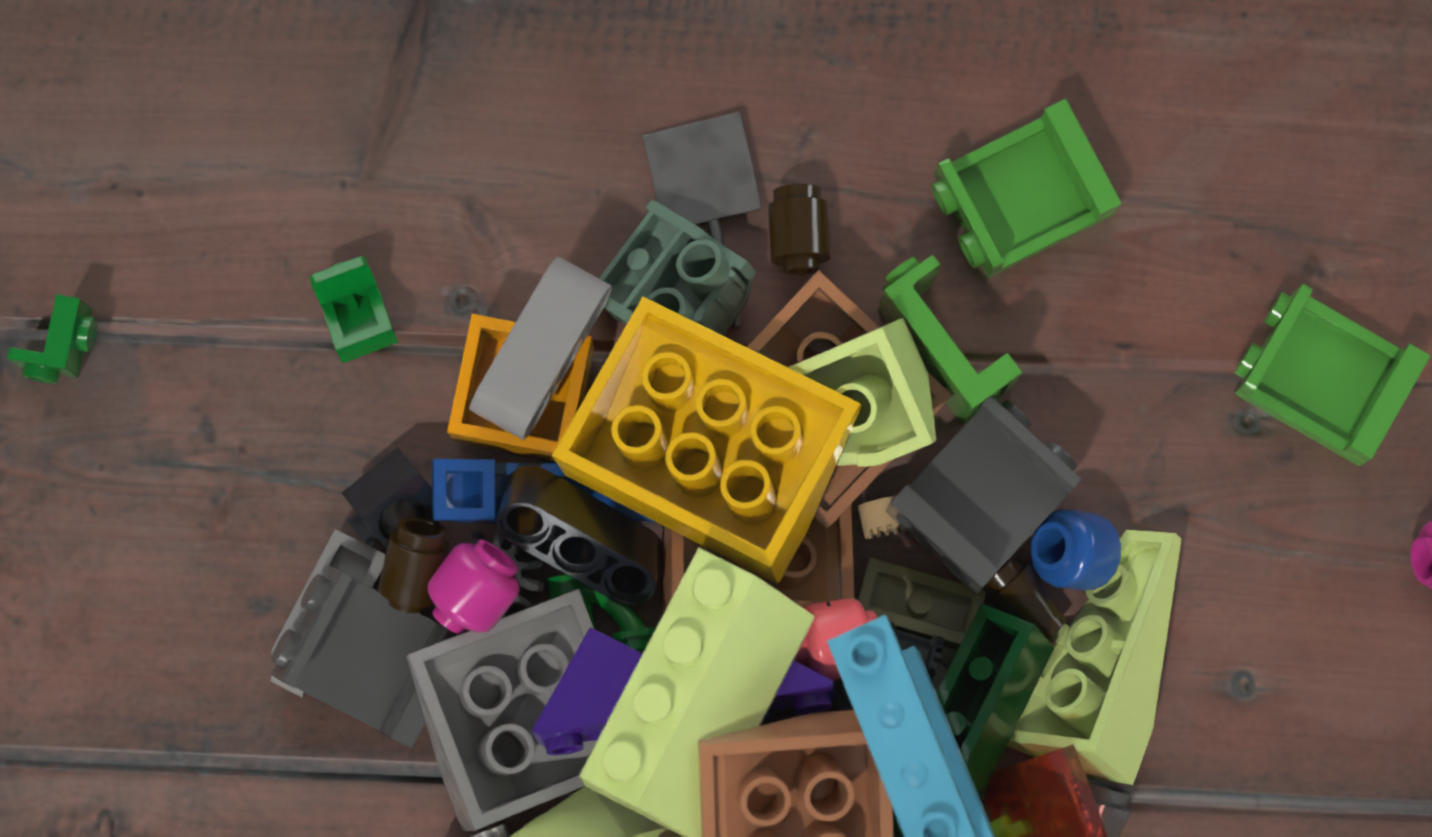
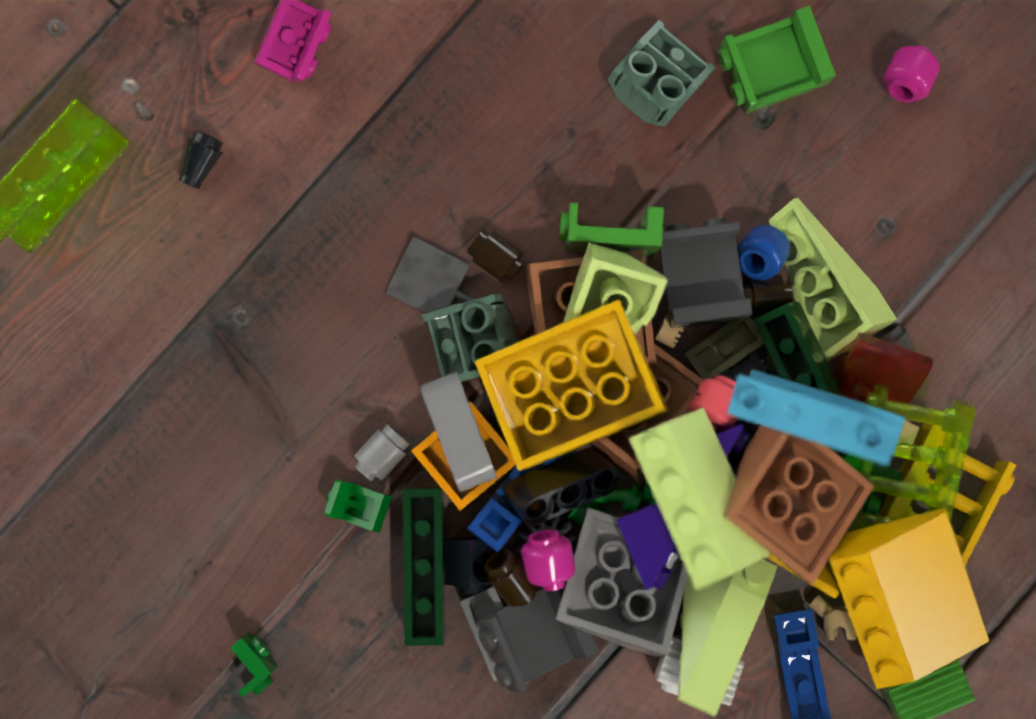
camera: 55 degrees left, 5 degrees up
(343, 448) = (424, 566): none -> dark green brick
(440, 287) = (381, 453): none -> light grey brick
(1025, 191) = (567, 130): bright green panel -> none
(1188, 245) = (658, 76): none -> sand green slope

